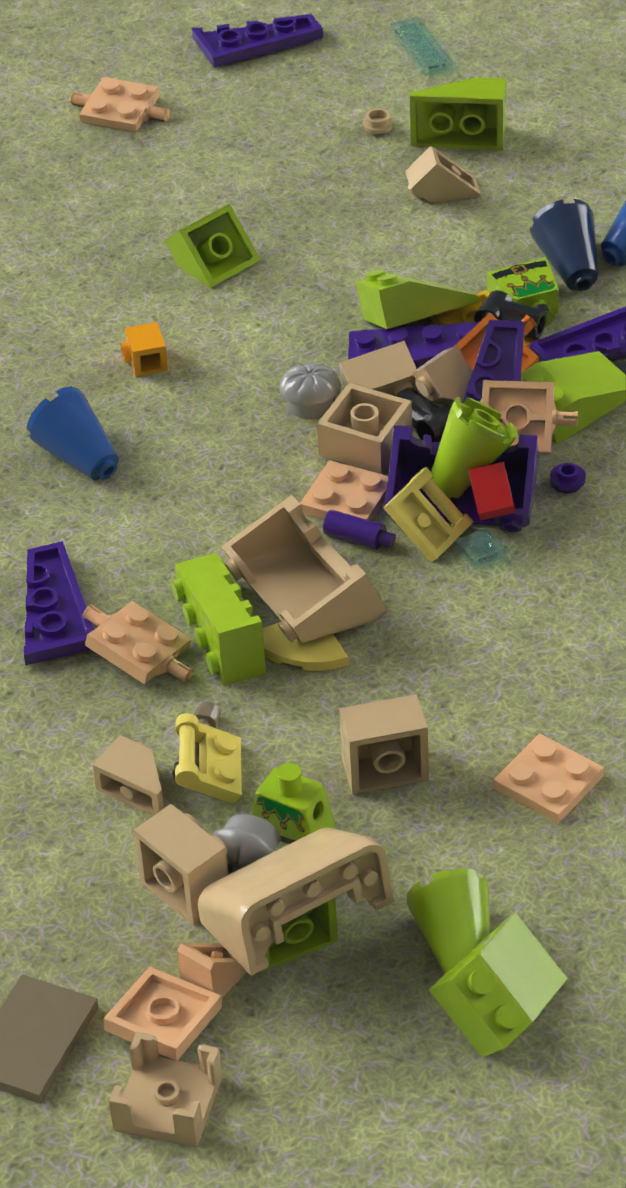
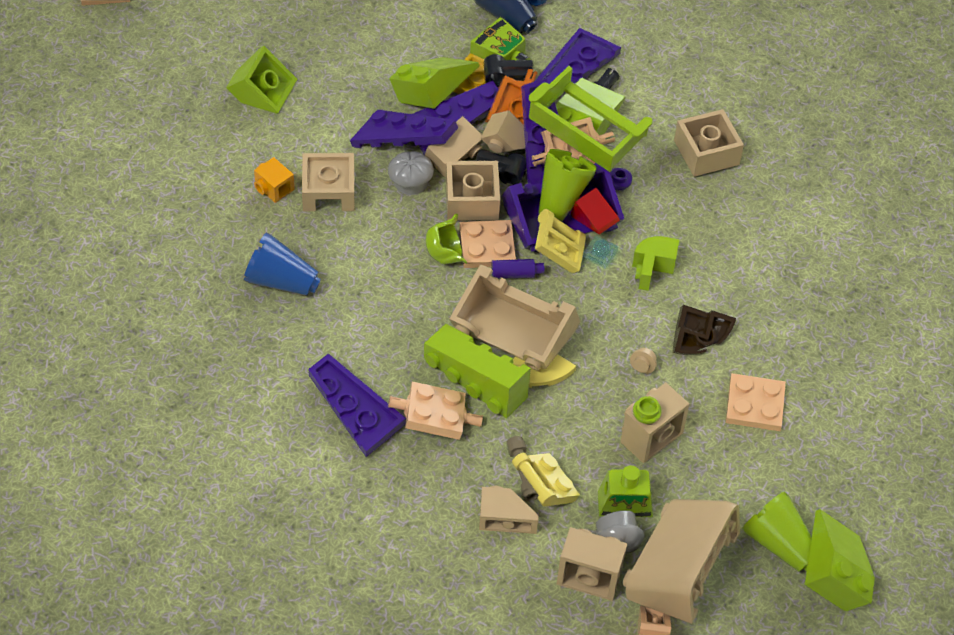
camera: 35 degrees left, 10 degrees up
(205, 363) = (328, 178): none -> tan panel
(290, 464) = (445, 236): none -> lime hair
(330, 336) = (403, 128): none -> dark purple wing
(362, 711) = (647, 410): none -> lime plate
(436, 679) = (643, 360): none -> tan plate
(502, 339) = (547, 93): none -> lime piece
(538, 673) = (700, 329): none -> dark brown brick
(539, 570) = (654, 254): none -> lime brick

